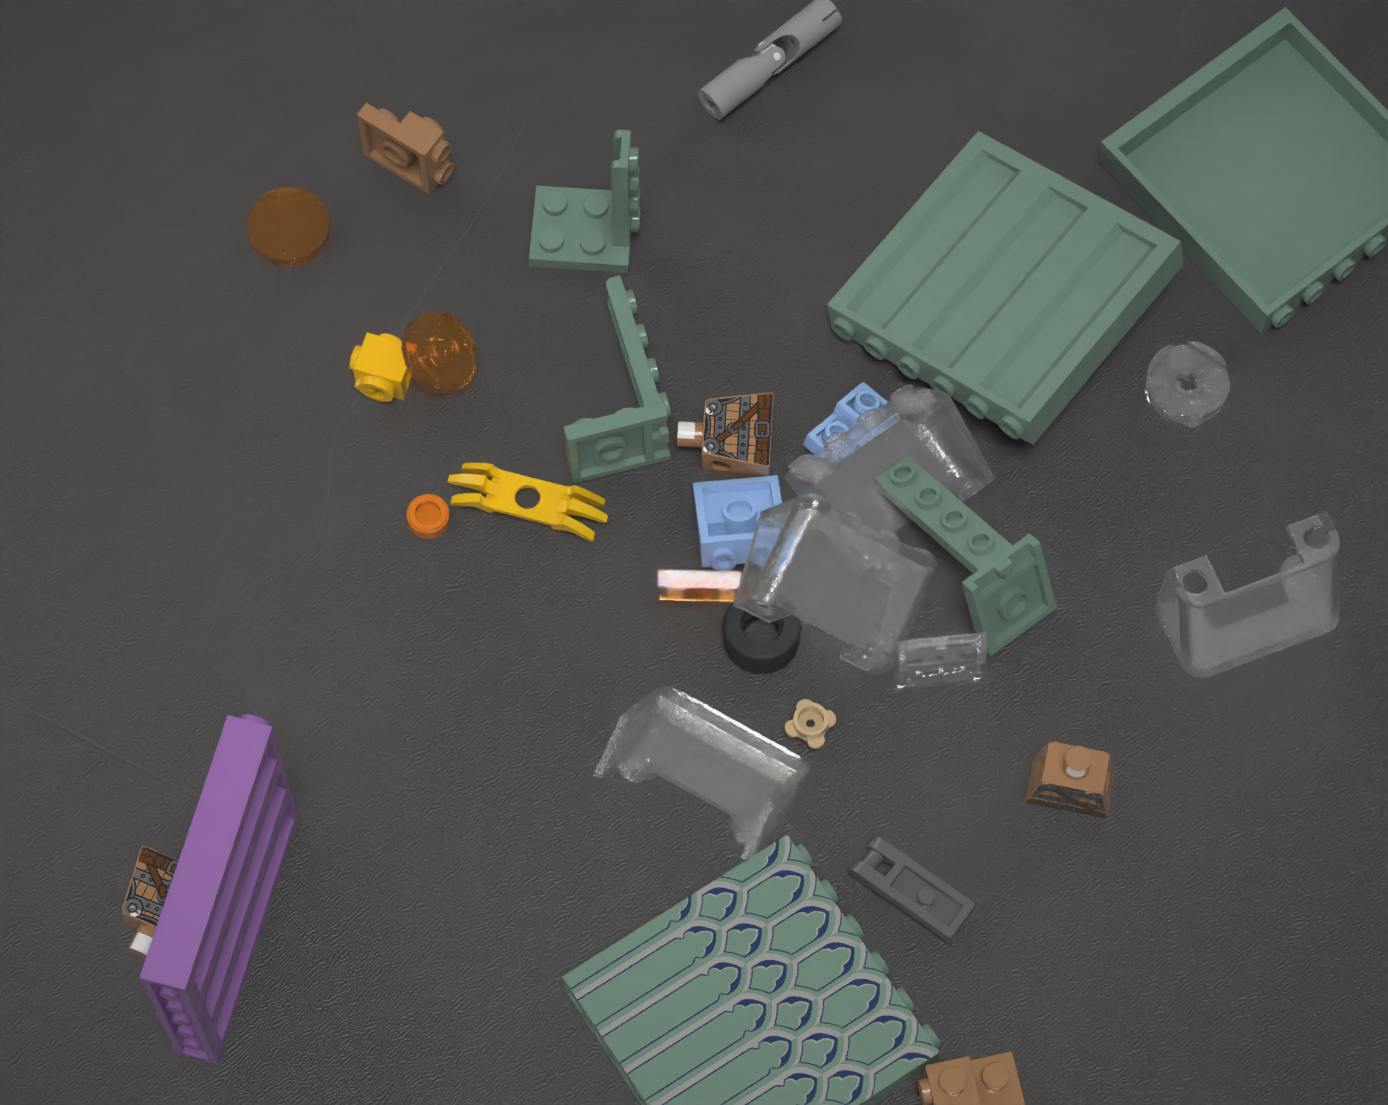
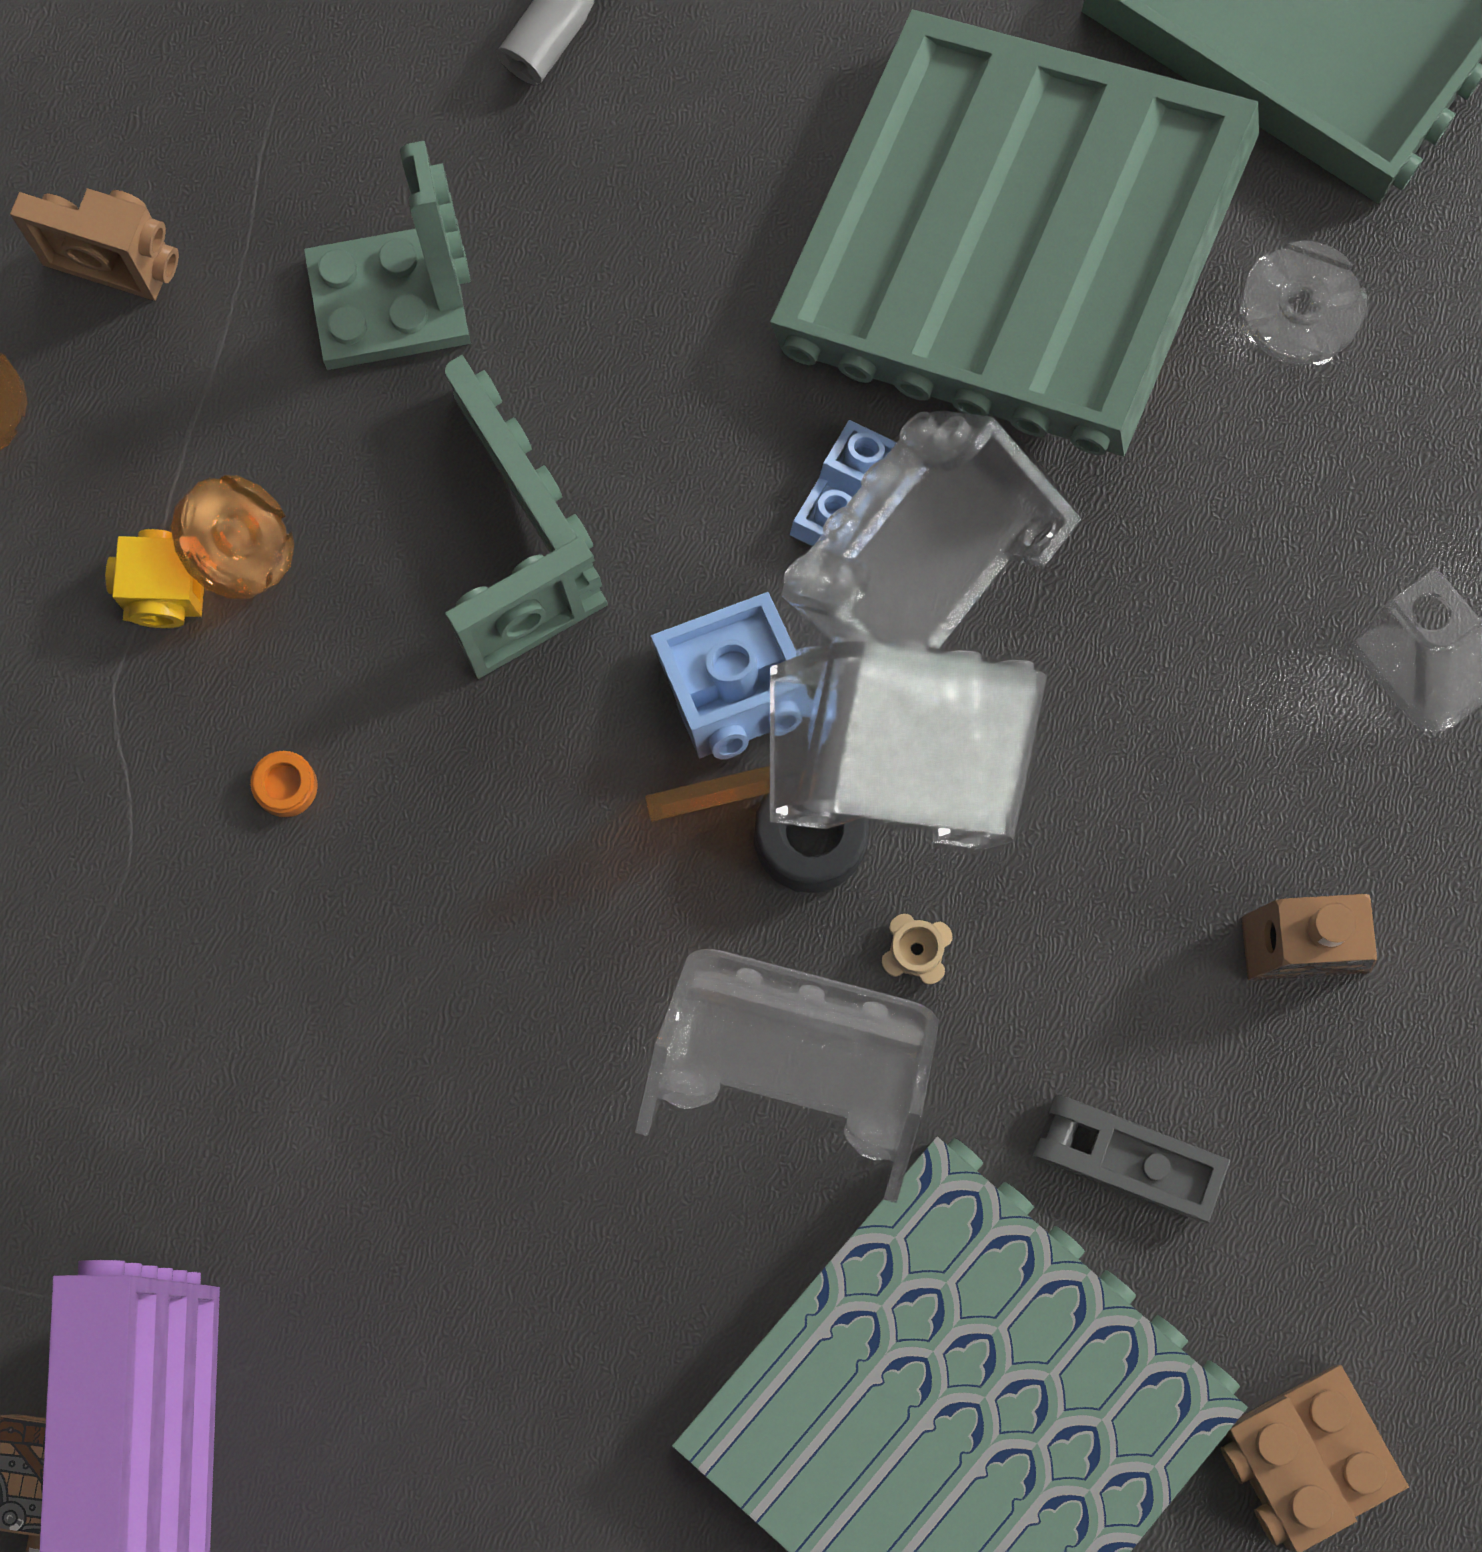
camera: 15 degrees left, 10 degrees up
(551, 509) = (457, 727): yellow piece -> none
(733, 435) = (689, 549): torso -> none
(940, 661) = (1083, 813): clear slope -> none
(1008, 581) = (1150, 668): sand green bracket -> none

